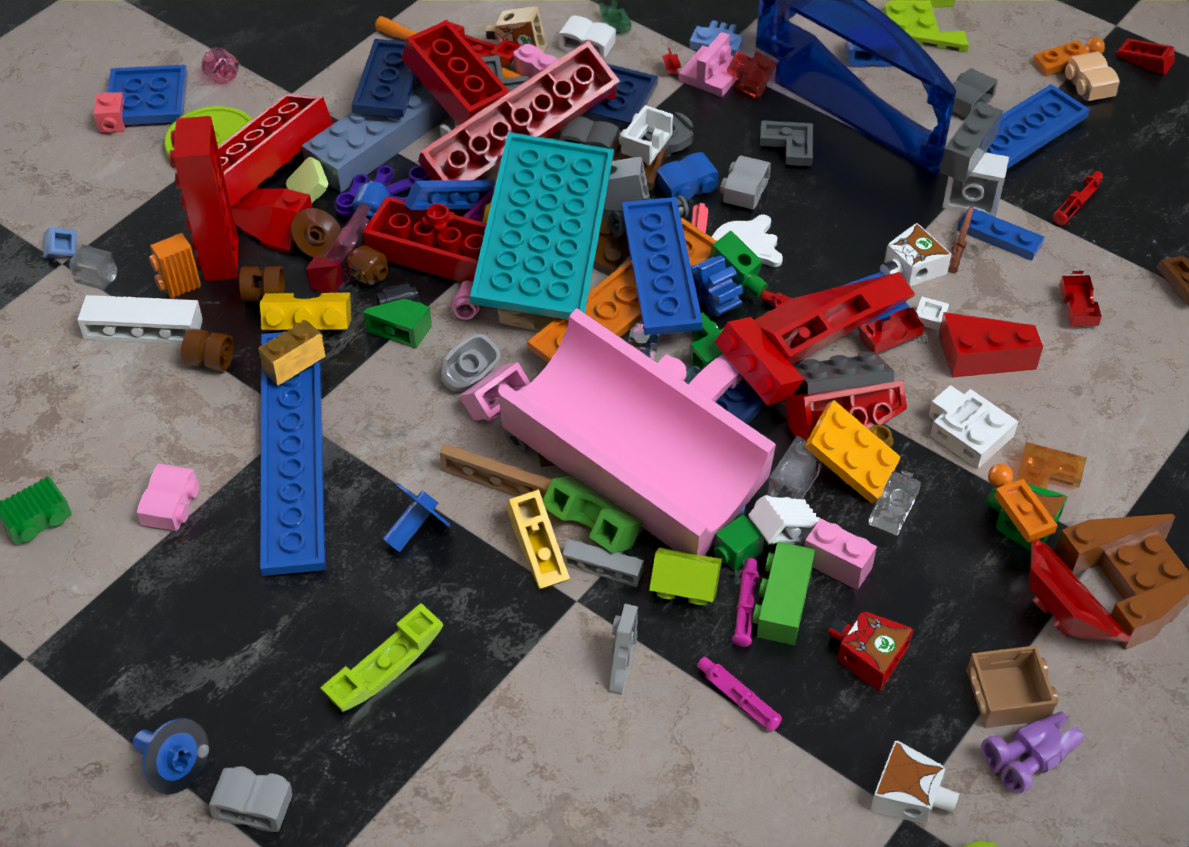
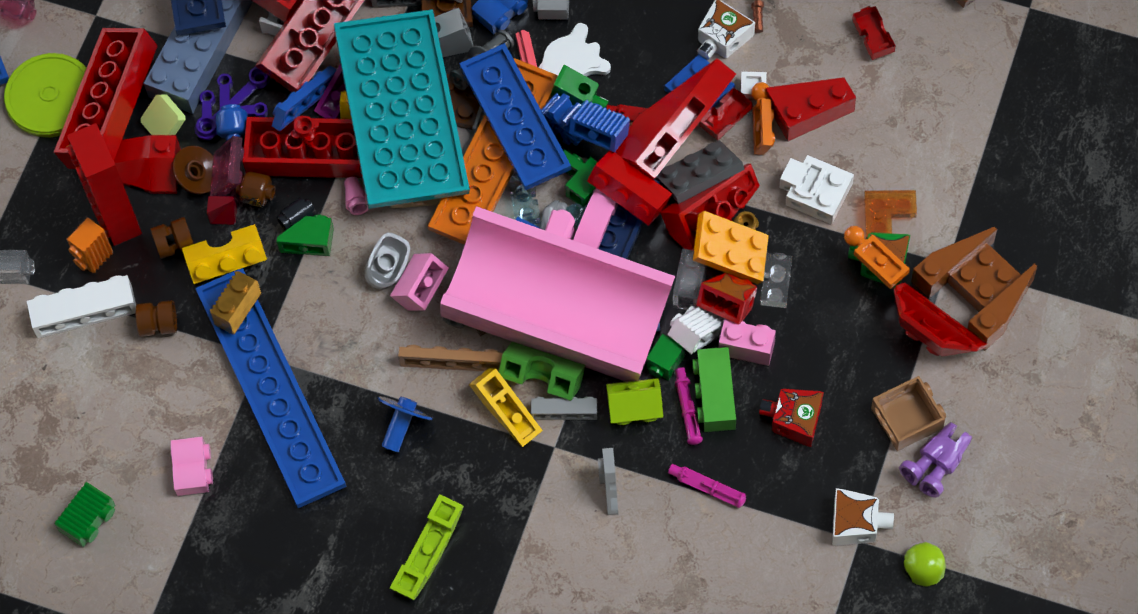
camera: 15 degrees left, 15 degrees up
(747, 290) = (599, 125): none -> blue brick
(839, 505) = (727, 297): none -> red torso
(930, 346) = (762, 119): none -> orange plate

